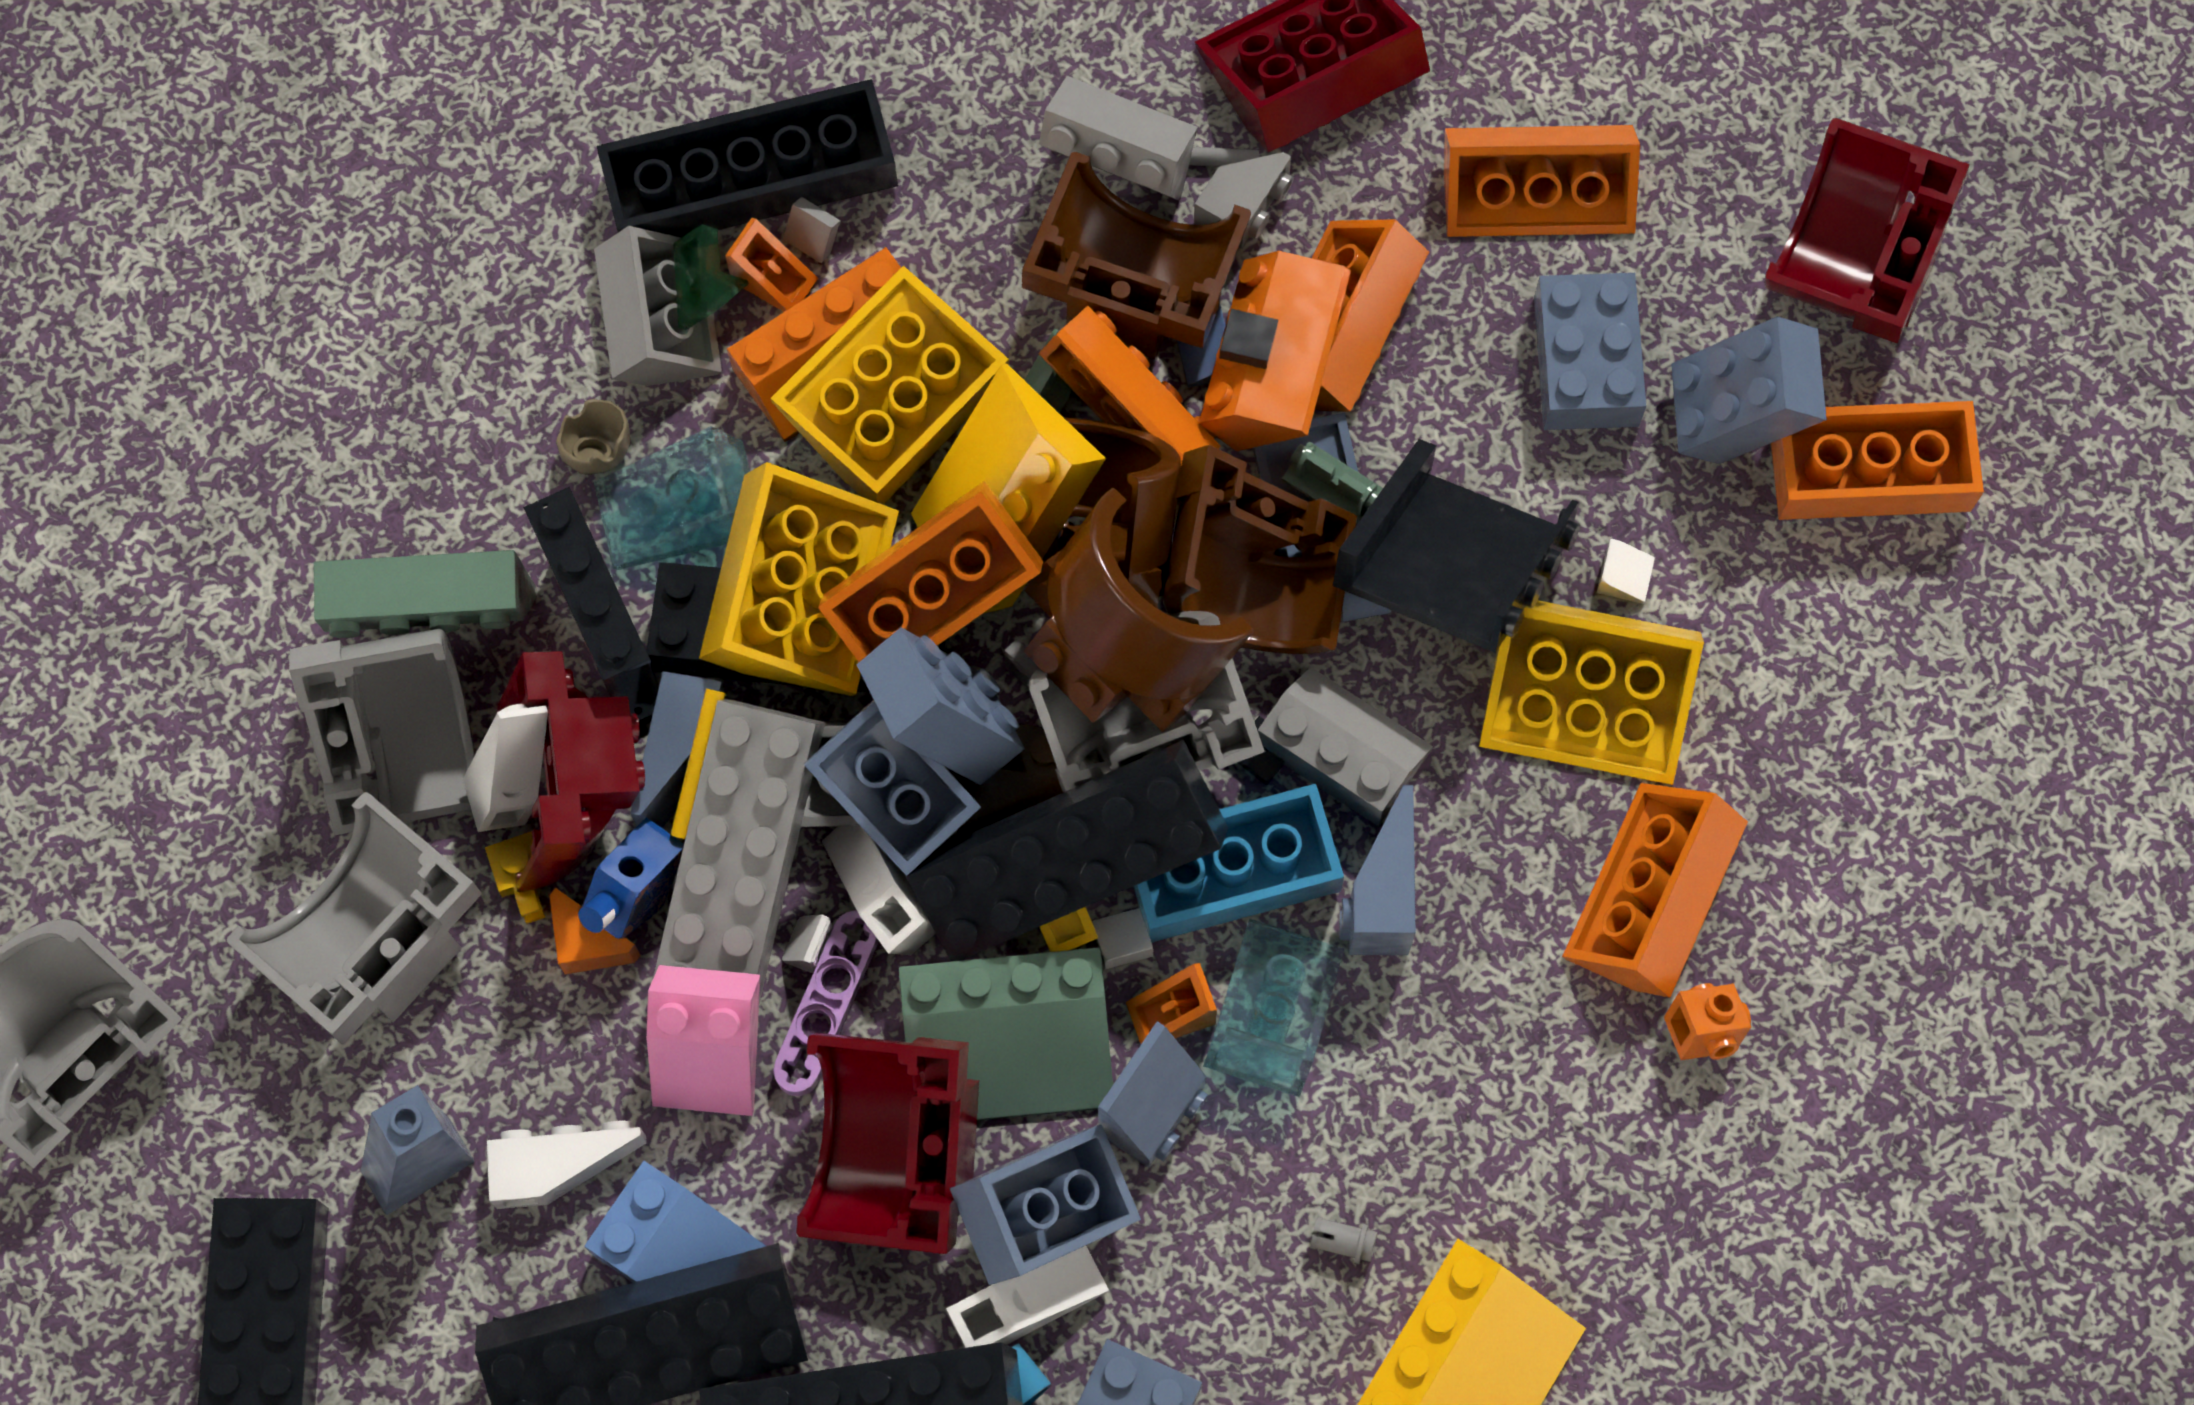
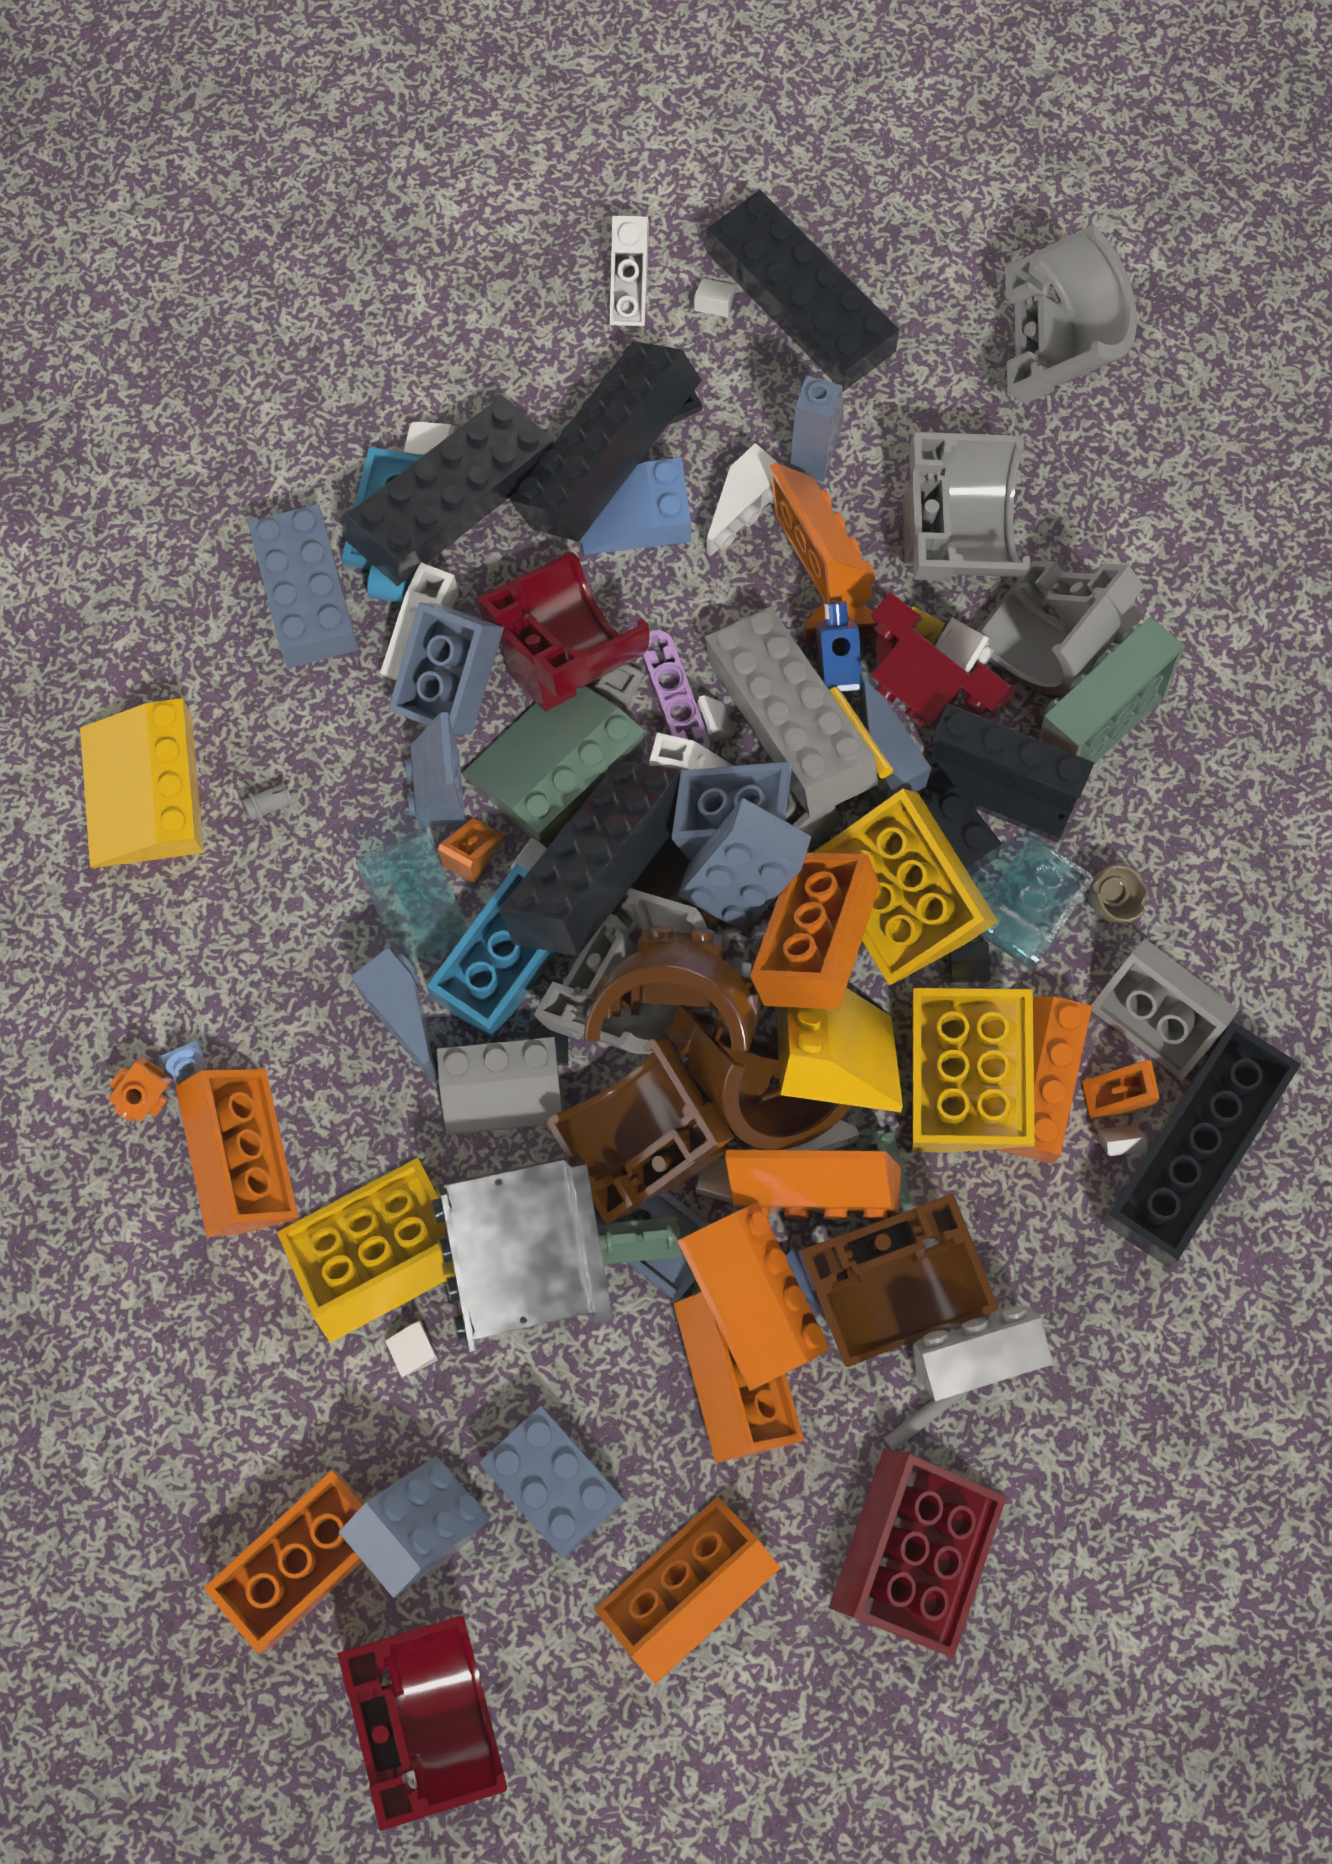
camera: 140 degrees right, 0 degrees up
(530, 1023) = (820, 537): none -> orange slope
(699, 283) = (1146, 1033): clear green slope -> none
(703, 1039) = (722, 607): bright pink slope -> none
(1248, 185) = (874, 1399): light grey slope -> none
(1248, 338) = (769, 1272): black tile -> none
(1640, 1027) = (184, 1061): none -> light blue plate

